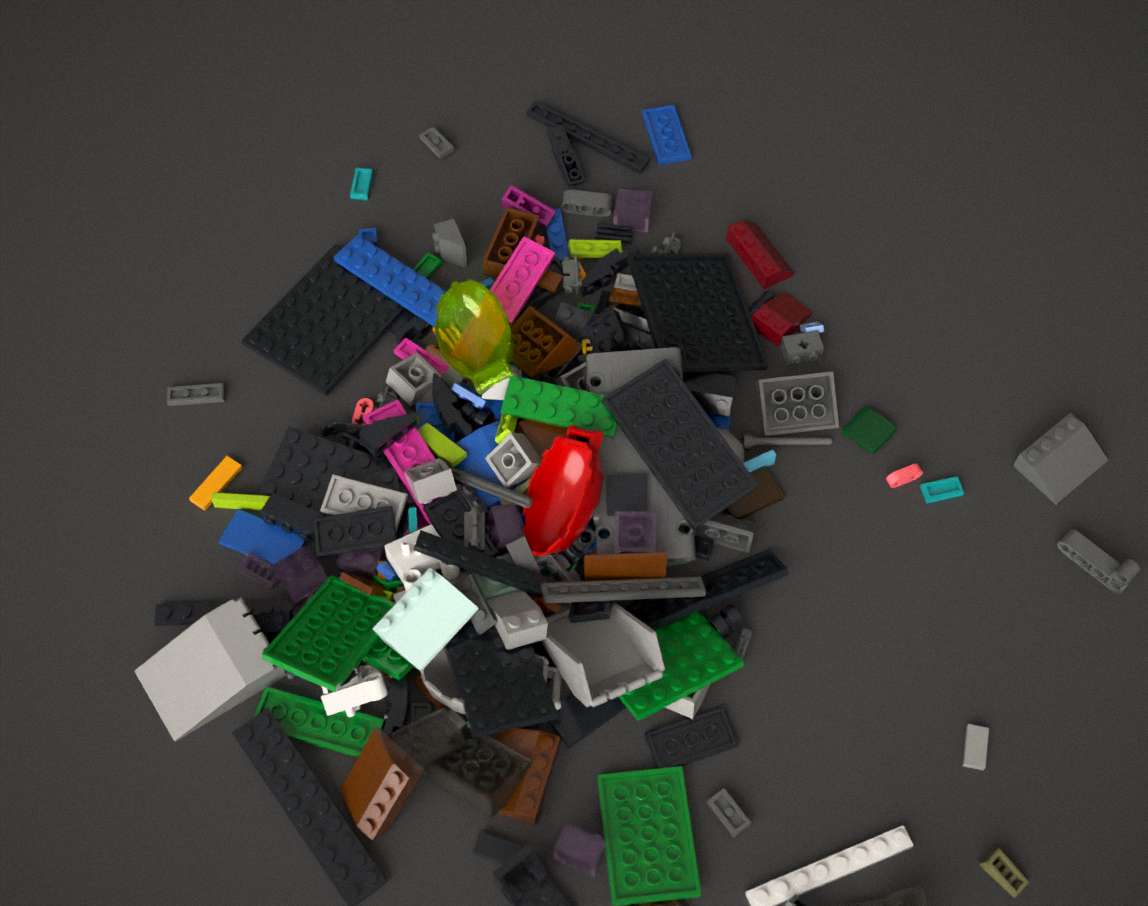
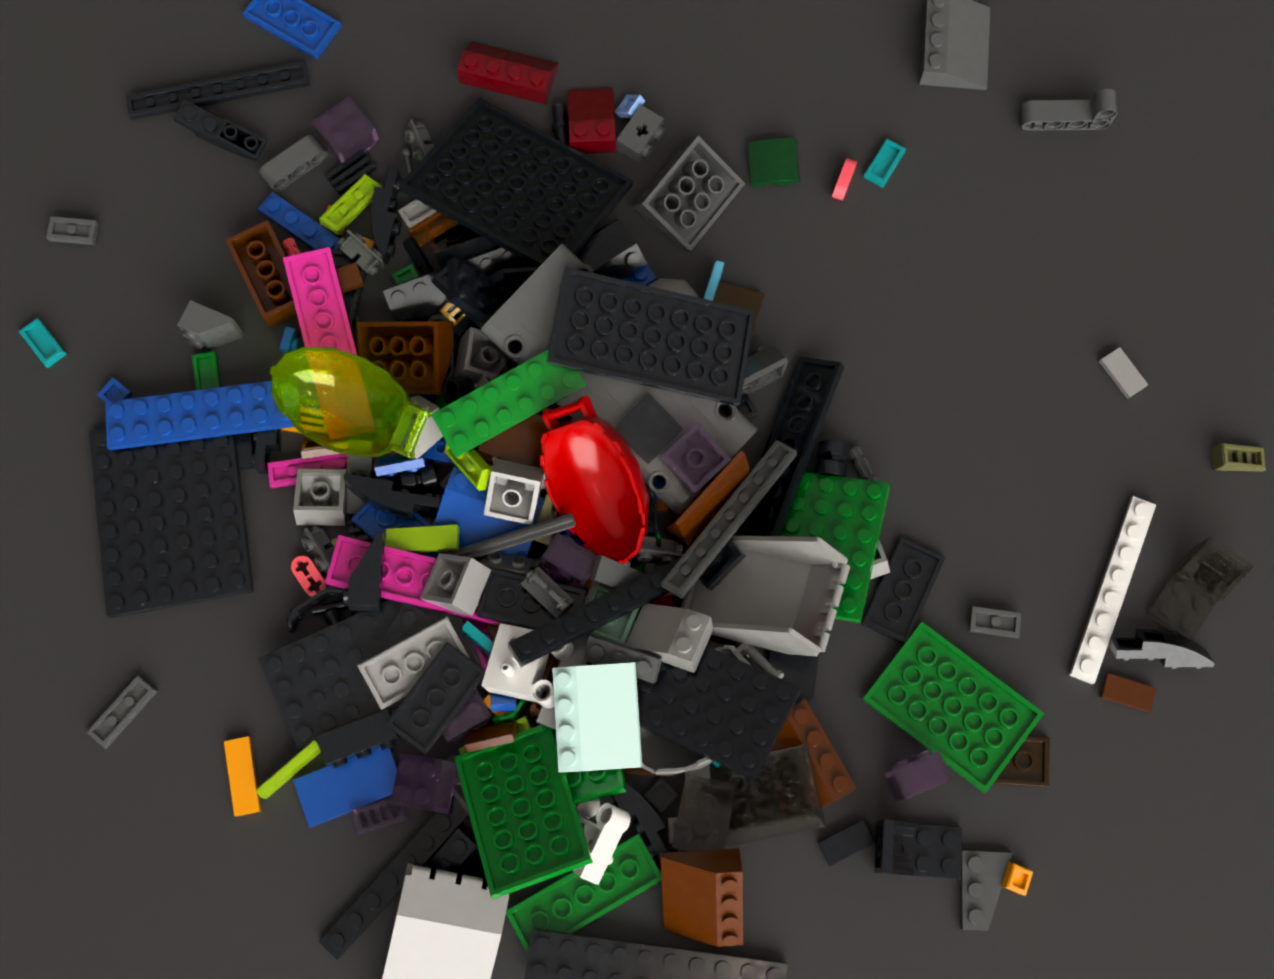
camera: 45 degrees left, 15 degrees up
(521, 201) = (233, 220): magenta slope -> none
(750, 441) = (683, 270): dark grey piece -> none

